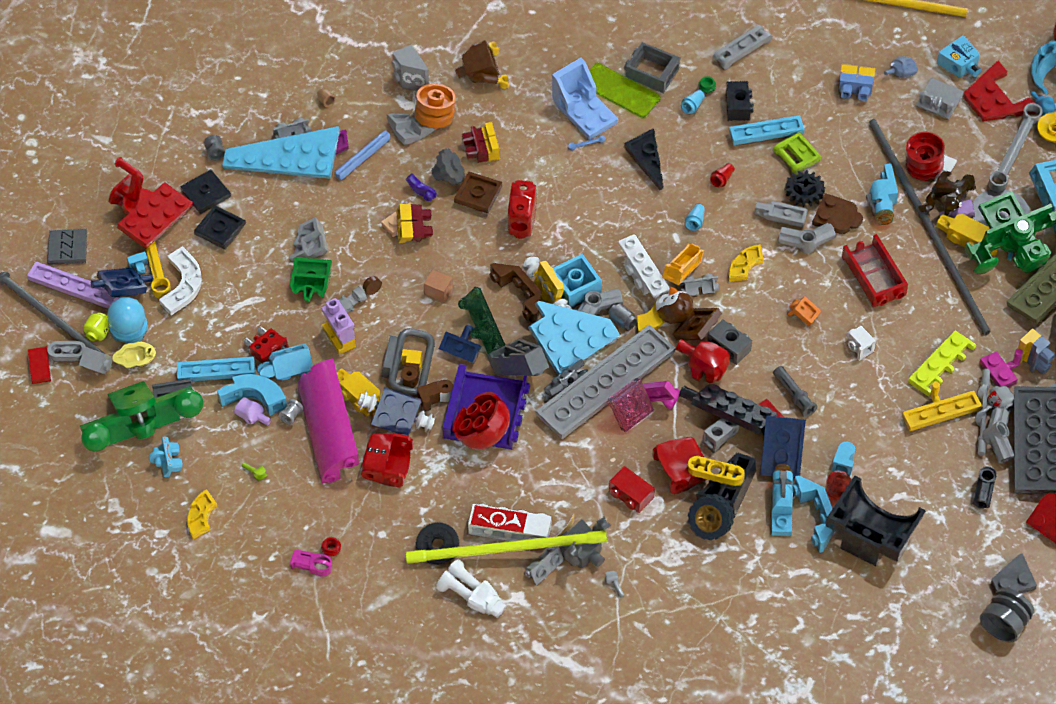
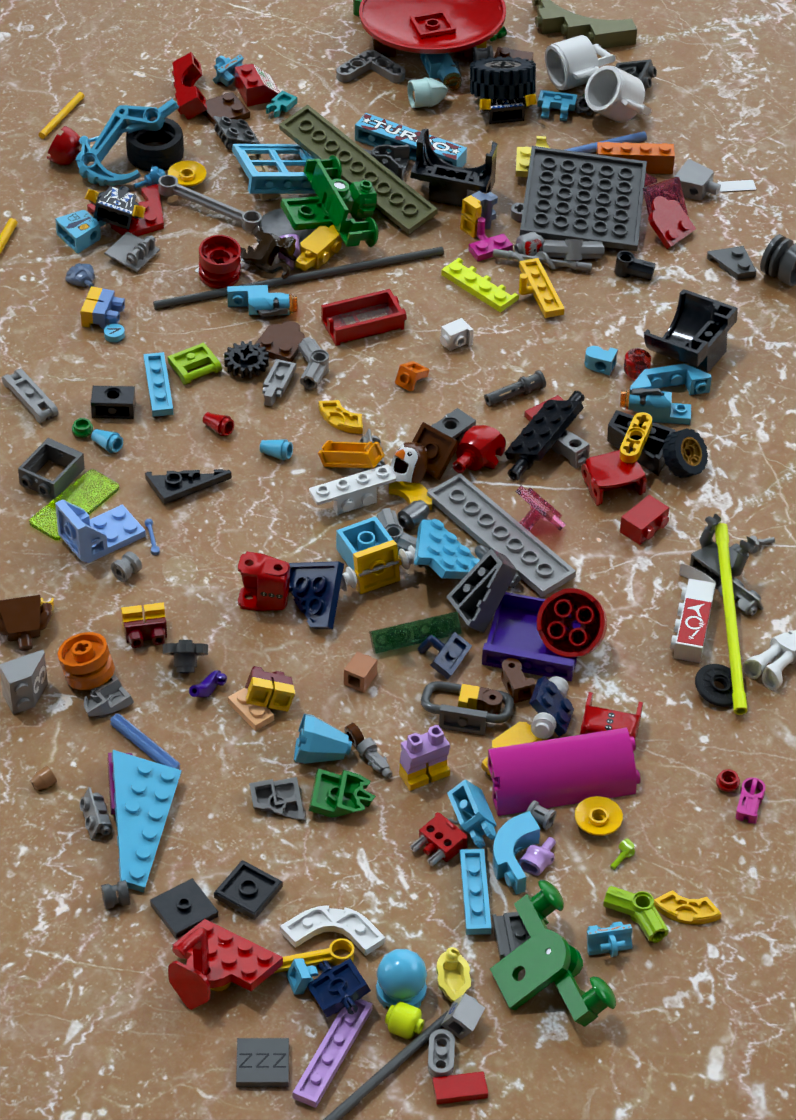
camera: 90 degrees left, 10 degrees down
(187, 483) = (641, 910): none -> lime piece
(289, 444) = (601, 809): none -> yellow dish
(359, 258) = (320, 741): none -> medium azure cone
(478, 192) = (220, 632): reddish brown plate -> none
(505, 274) = (395, 587): reddish brown slope -> none
(518, 249) = (317, 590): none -> dark blue plate
(546, 126) = (126, 566): none -> light grey wheel
(663, 392) = (526, 477): dark pink plate -> none
(782, 444) = (593, 392): dark blue plate -> none
(831, 96) = (114, 332): none -> medium azure tile
(982, 71) = (115, 206): none -> torso

